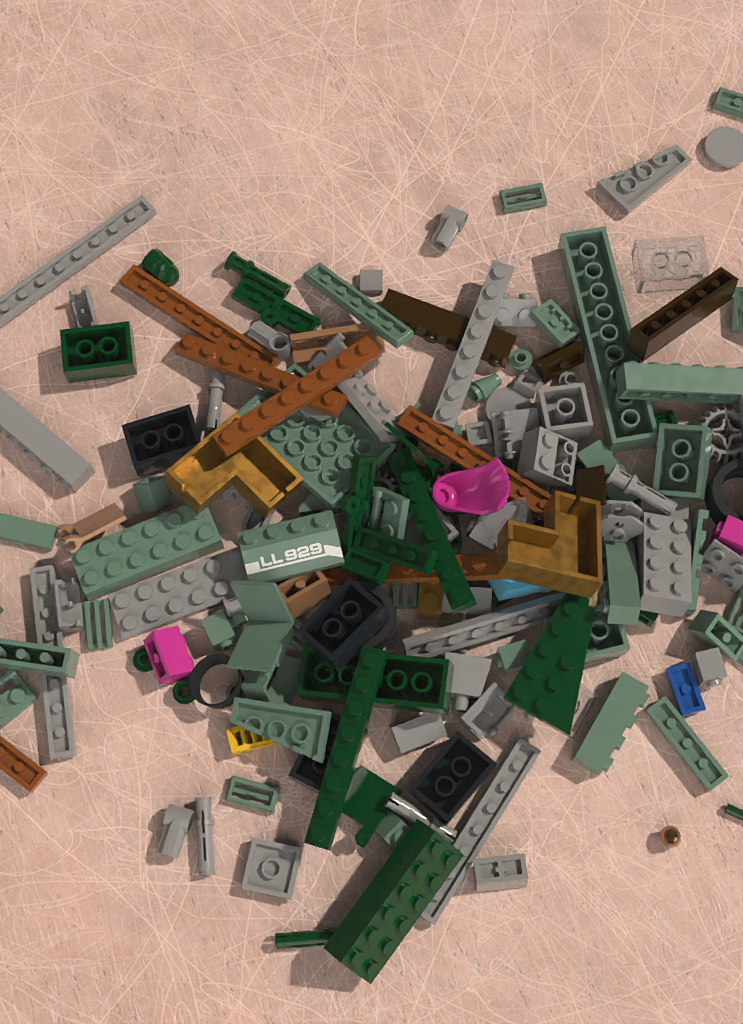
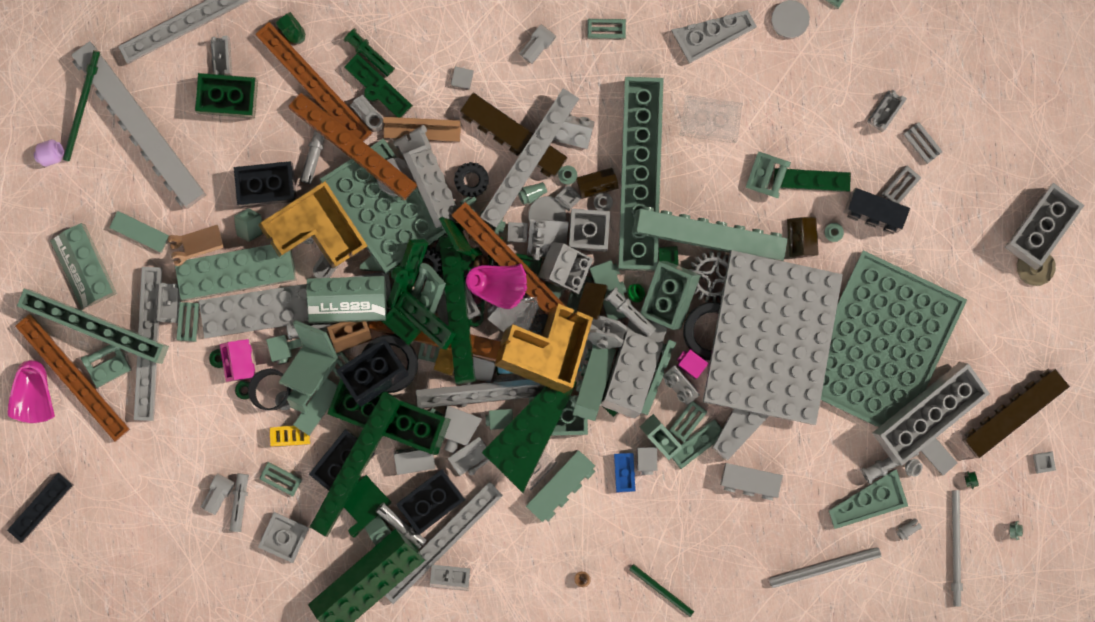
camera: 15 degrees right, 15 degrees up
(291, 726) = (317, 438): sand green wing -> none
(296, 396) = (376, 177): dark orange plate -> none
(303, 938) = (296, 592): dark green pin -> none
(358, 305) = (444, 101): sand green tile -> none
(403, 375) = (471, 168): none -> black tyre
(555, 323) = (602, 153): sand green bracket -> none
(639, 470) = (636, 292): none -> green plate
(681, 314) = (704, 170): dark brown brick -> none
(686, 744) = (614, 513): sand green plate -> none

